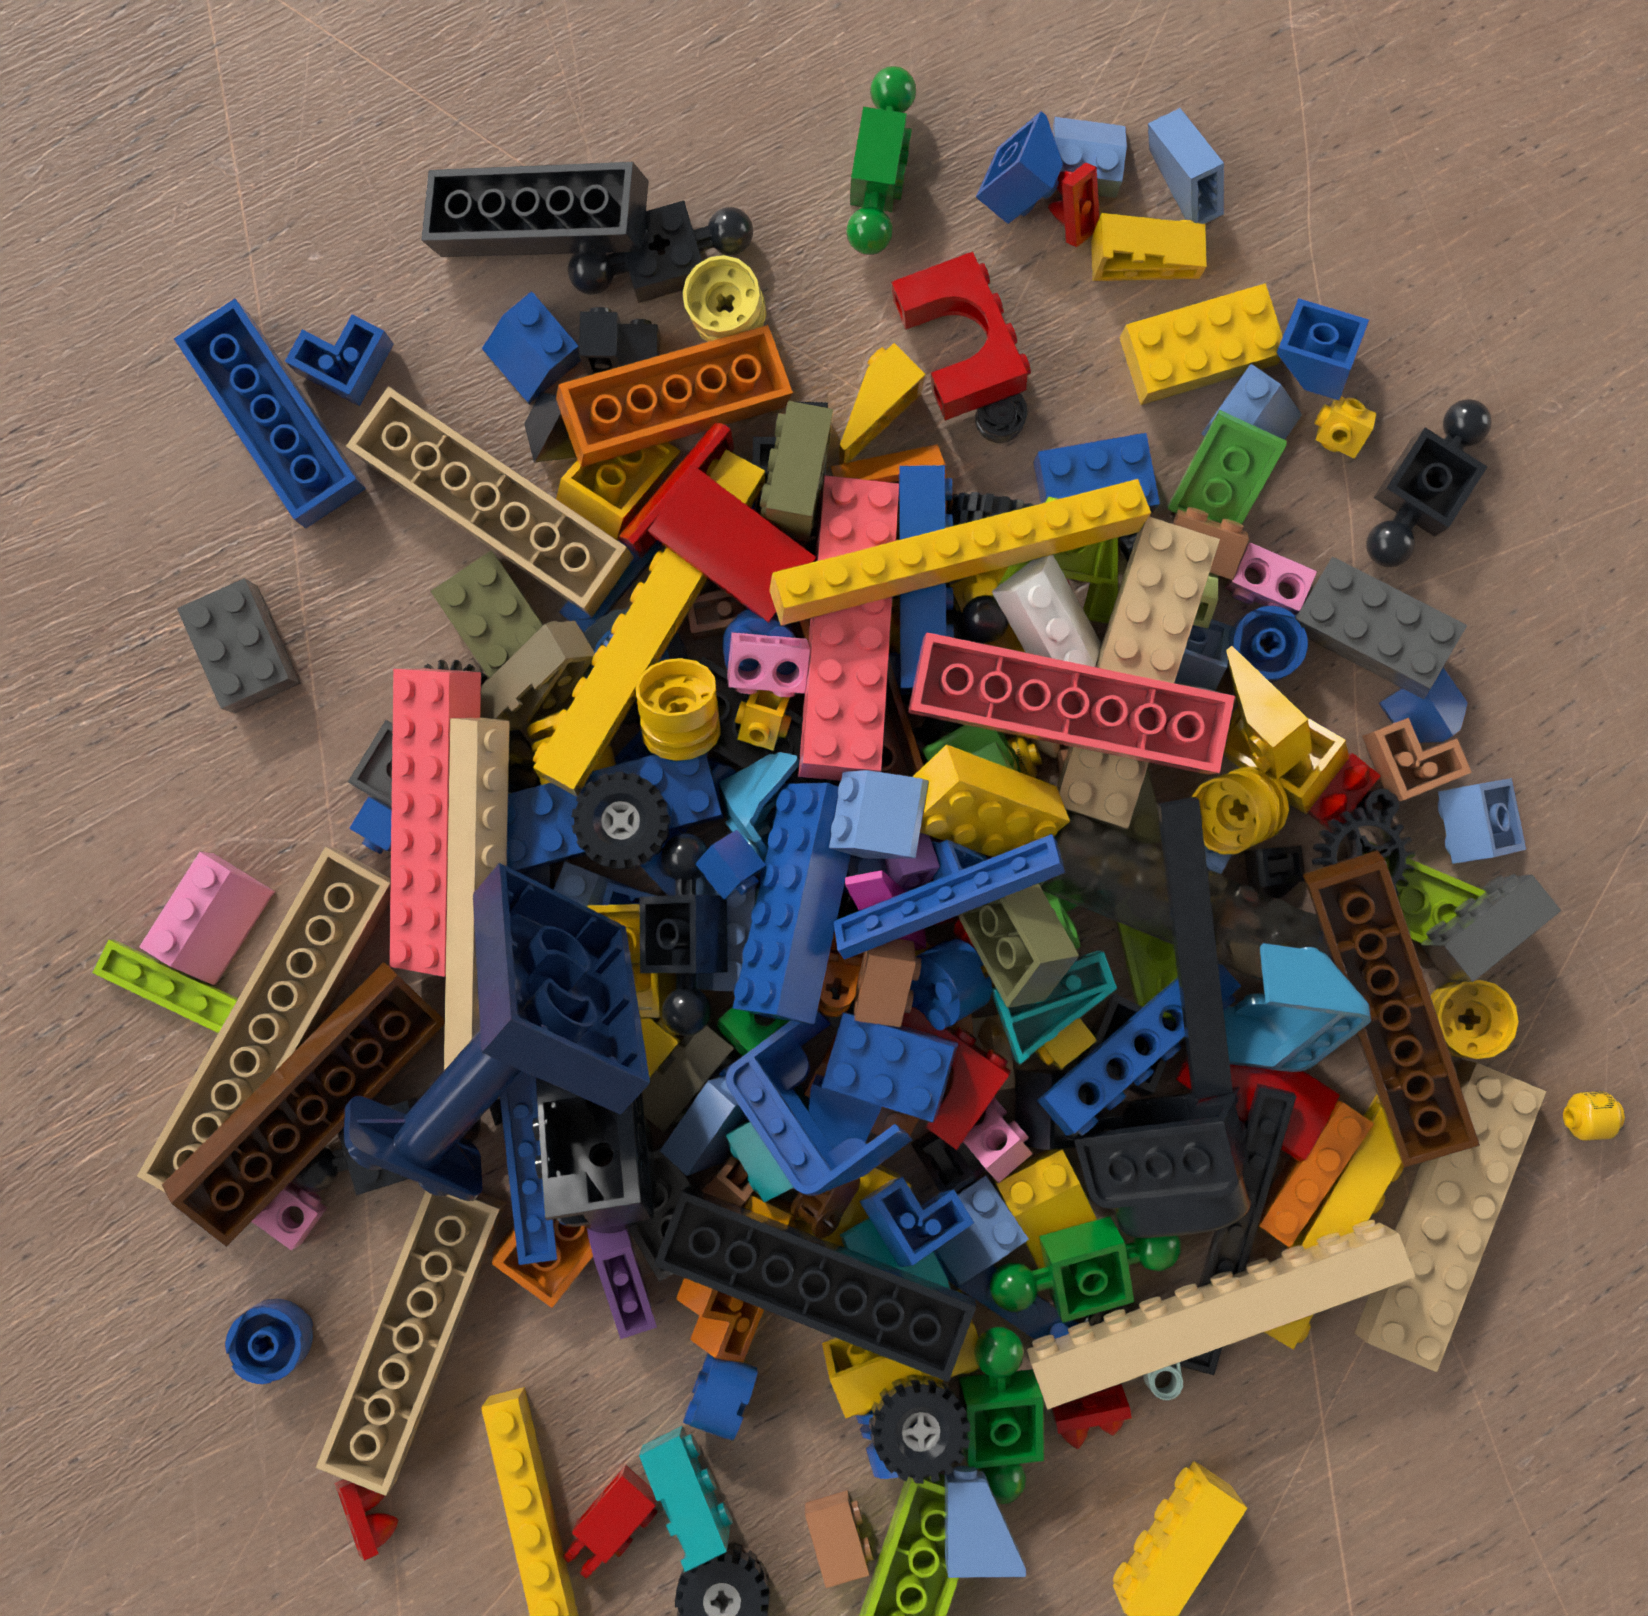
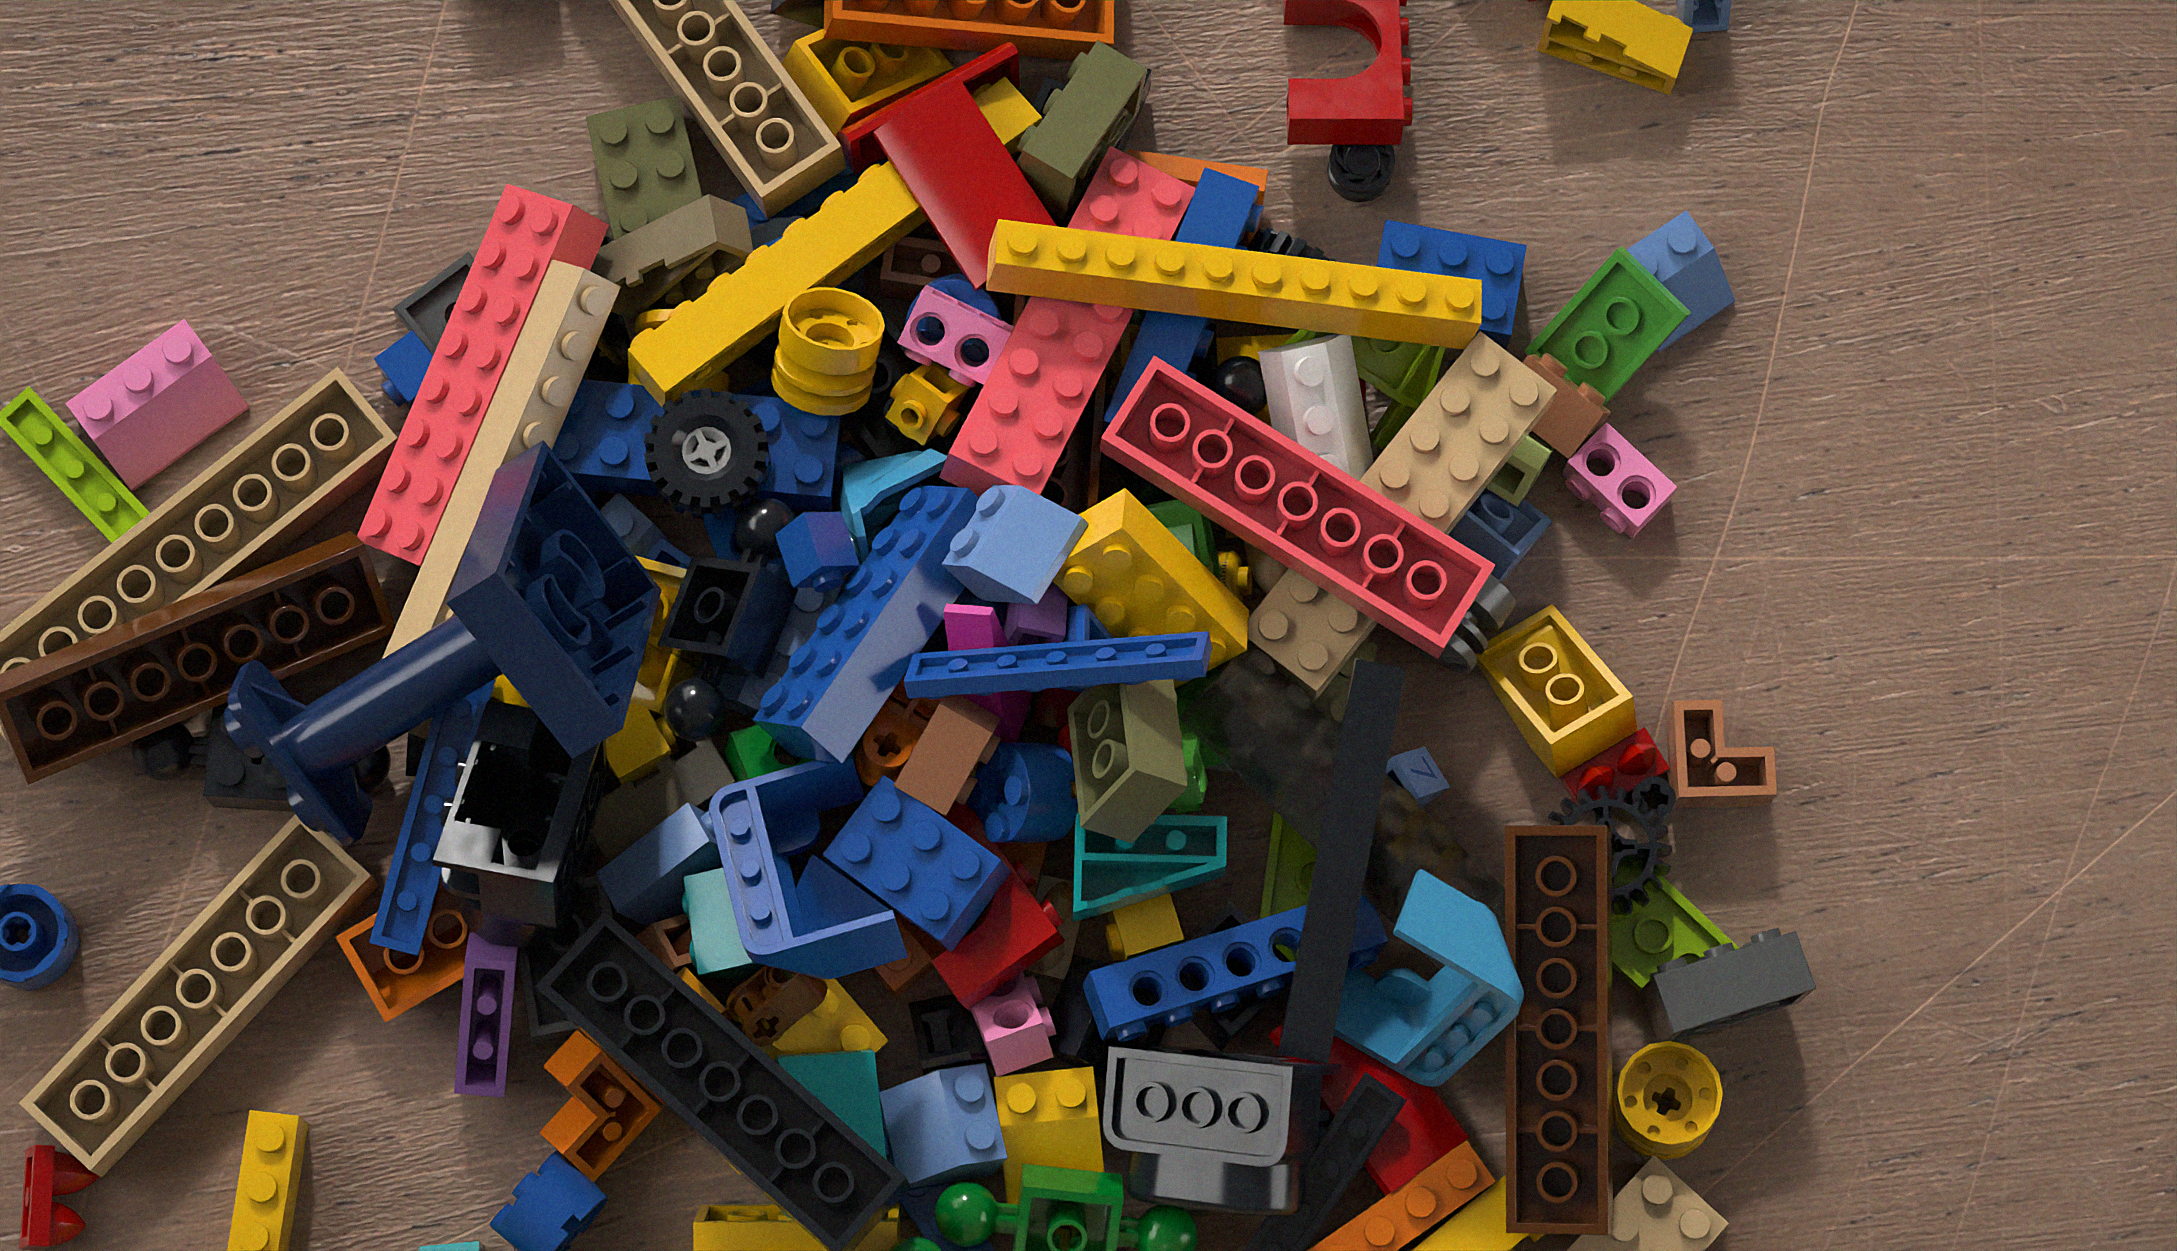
camera: 20 degrees right, 10 degrees down
(238, 646) = (328, 100): dark grey brick -> none
(276, 1217) = (94, 787): bright pink brick -> none
(886, 391) = (1221, 89): yellow slope -> none
(914, 1229) = (867, 1076): blue brick -> none
(1202, 343) = (1639, 169): yellow brick -> none
(1228, 822) = (1469, 733): yellow wheel -> none
(1273, 725) = (1545, 636): yellow slope -> none
(1275, 869) = (1484, 828): black slope -> none
(1282, 634) = (1561, 535): blue brick -> none
(1321, 347) = (1782, 224): blue slope -> none
(1344, 426) = (1778, 328): yellow brick -> none
(1379, 627) = (1728, 582): dark grey brick -> none
(1434, 717) = (1762, 705): blue slope -> none
(1451, 476) = (1865, 403): black brick -> none
(1481, 821) = (1777, 868): medium blue slope -> none

